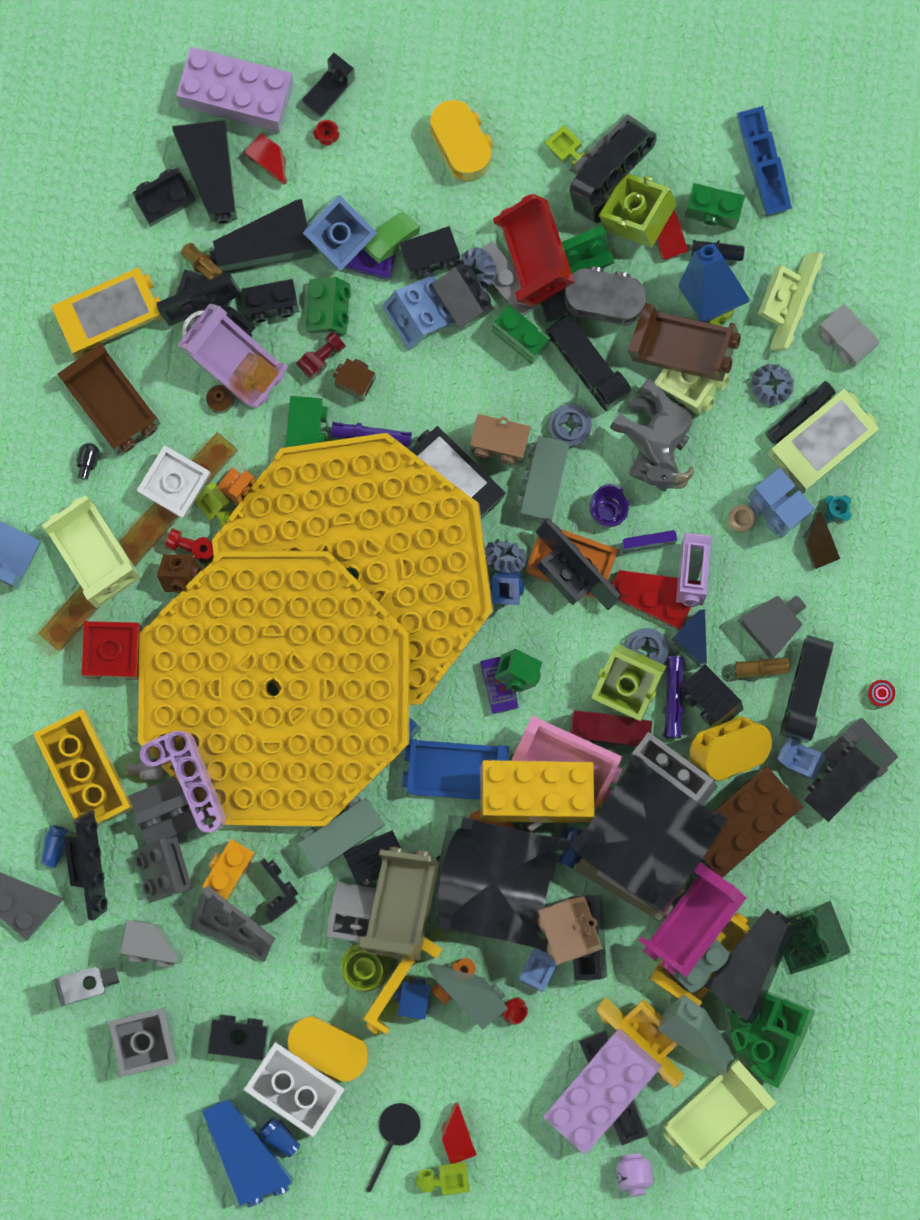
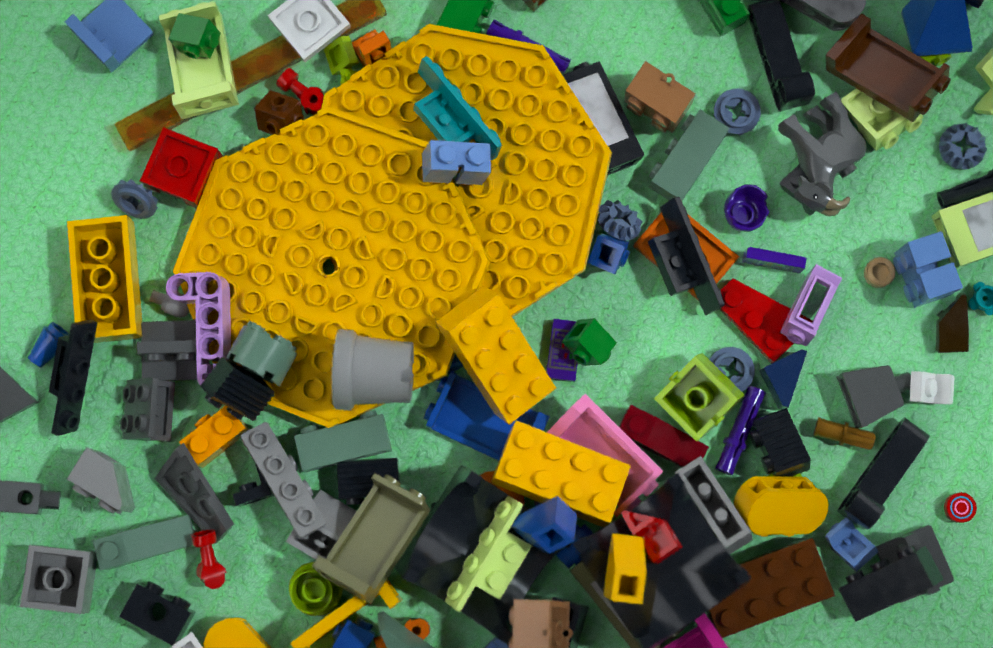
camera: 25 degrees right, 0 degrees up
(72, 692) = (126, 199): none -> sand blue gear
(80, 532) = (194, 36): none -> green brick
(204, 982) = (143, 542): none -> sand green slope
(236, 822) = (236, 389): none -> black brick
(246, 785) = (261, 354): none -> sand green brick
(268, 986) = (209, 569): none -> red leg
(303, 884) = (282, 478): none -> light grey bracket
(330, 522) = (449, 114): none -> teal bracket
(339, 562) = (443, 158): none -> medium blue piece
(345, 764) = (370, 370): none -> light grey piece
(445, 711) = (496, 354): none -> yellow brick
(507, 885) = (494, 558): none -> yellowish green bracket
(542, 839) = (547, 525): none -> blue slope
(621, 850) = (625, 569): none -> yellow slope
(633, 812) = (657, 535): none -> red slope
(820, 601) = (931, 388): none -> white bracket

